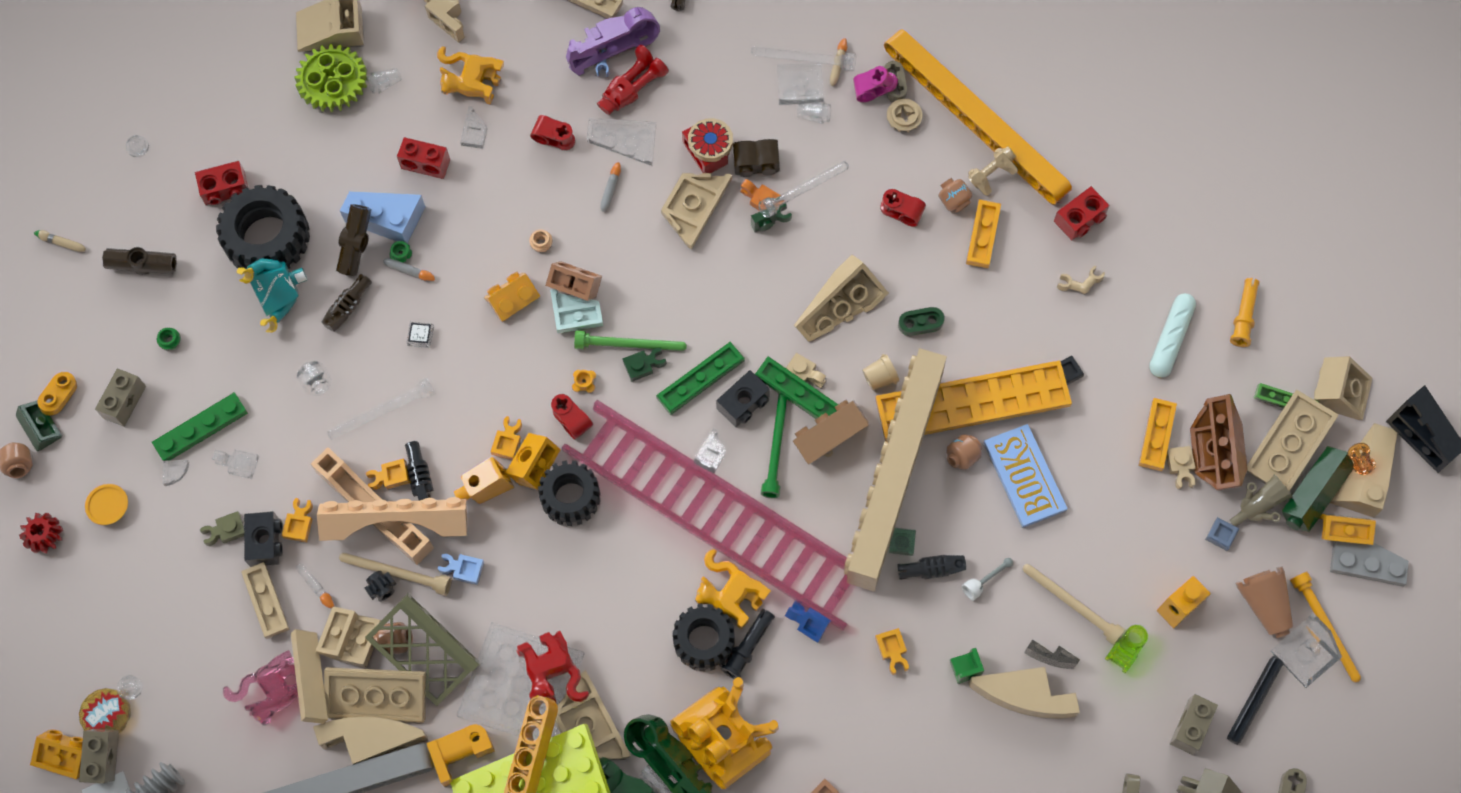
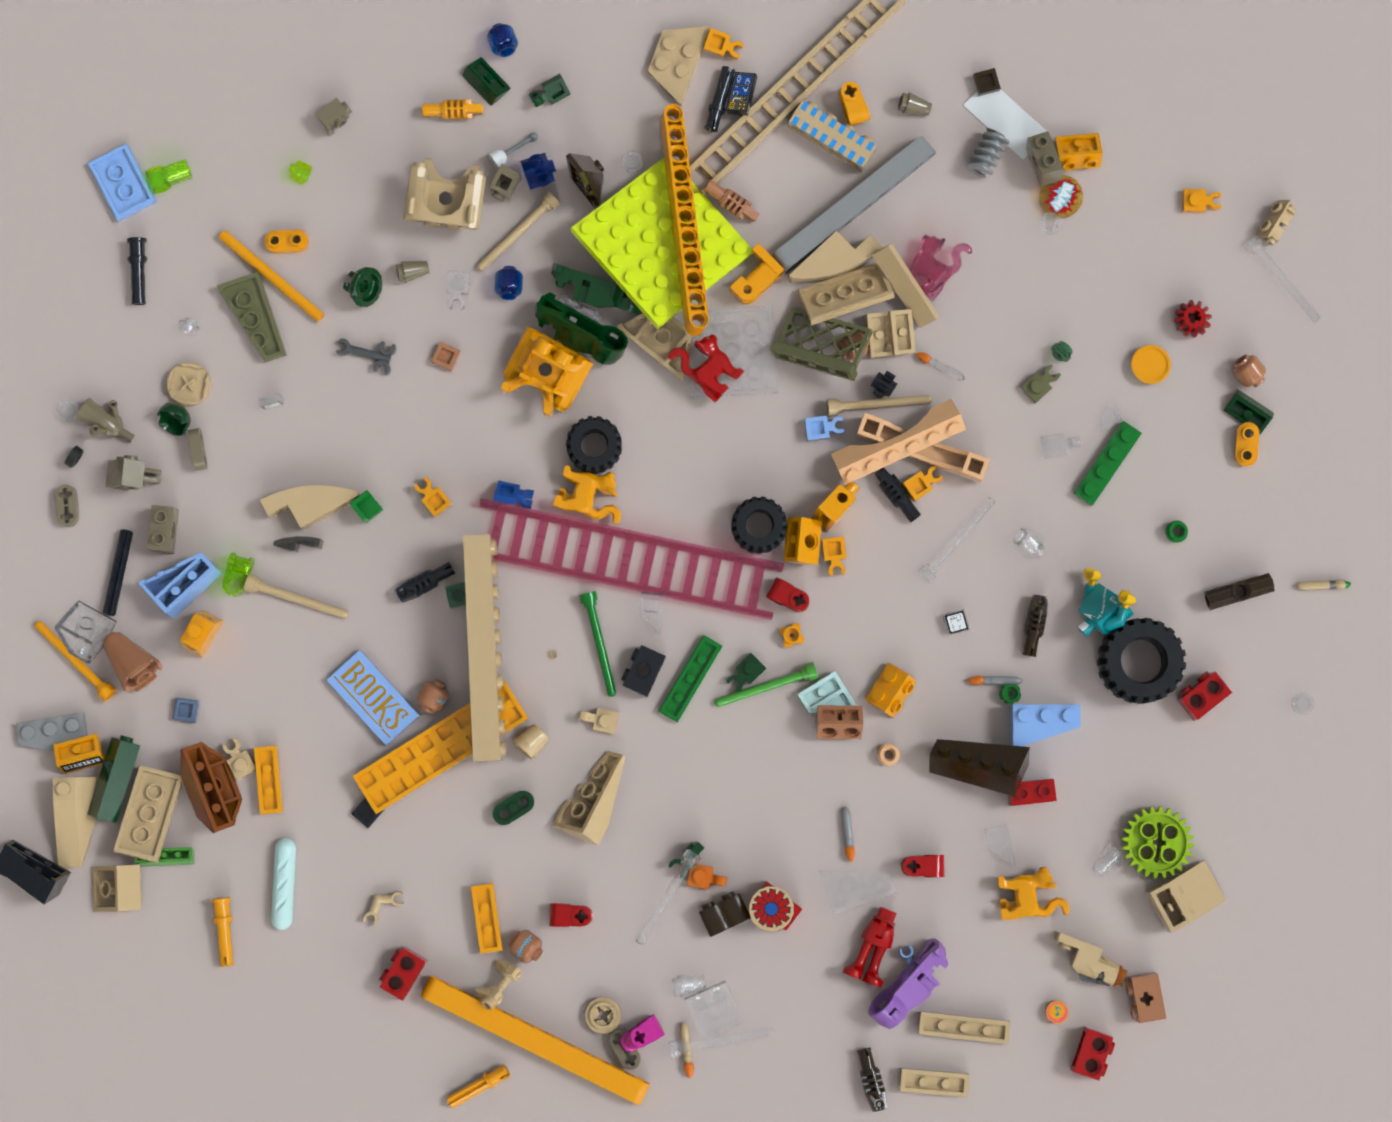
camera: 155 degrees right, 15 degrees up
(120, 397) = (1188, 459): dark tan brick -> none
(187, 551) = (1061, 351): none -> clear green plate
(255, 527) = (1002, 373): black brick -> none
(265, 600) = (975, 336): tan plate -> none
(298, 524) = (980, 409): light orange plate -> none
(353, 239) = (1053, 681): dark brown piece -> none
(456, 191) = (980, 764): none -> dark brown wedge
(693, 203) = (764, 845): tan wing -> none
(742, 653) = (557, 445): black pin -> none
(795, 389) = (597, 696): green tile -> none
(830, 431) = (553, 668): medium nougat wedge -> none
(973, 587) = (382, 578): hinge -> none
(1043, 96) = (488, 1080): none -> light orange axle
(1192, 657) = (181, 584): none -> light blue wedge
(1255, 506) = (162, 746): dark tan piece -> none
(1359, 458) = (82, 817): clear orange bush -> none

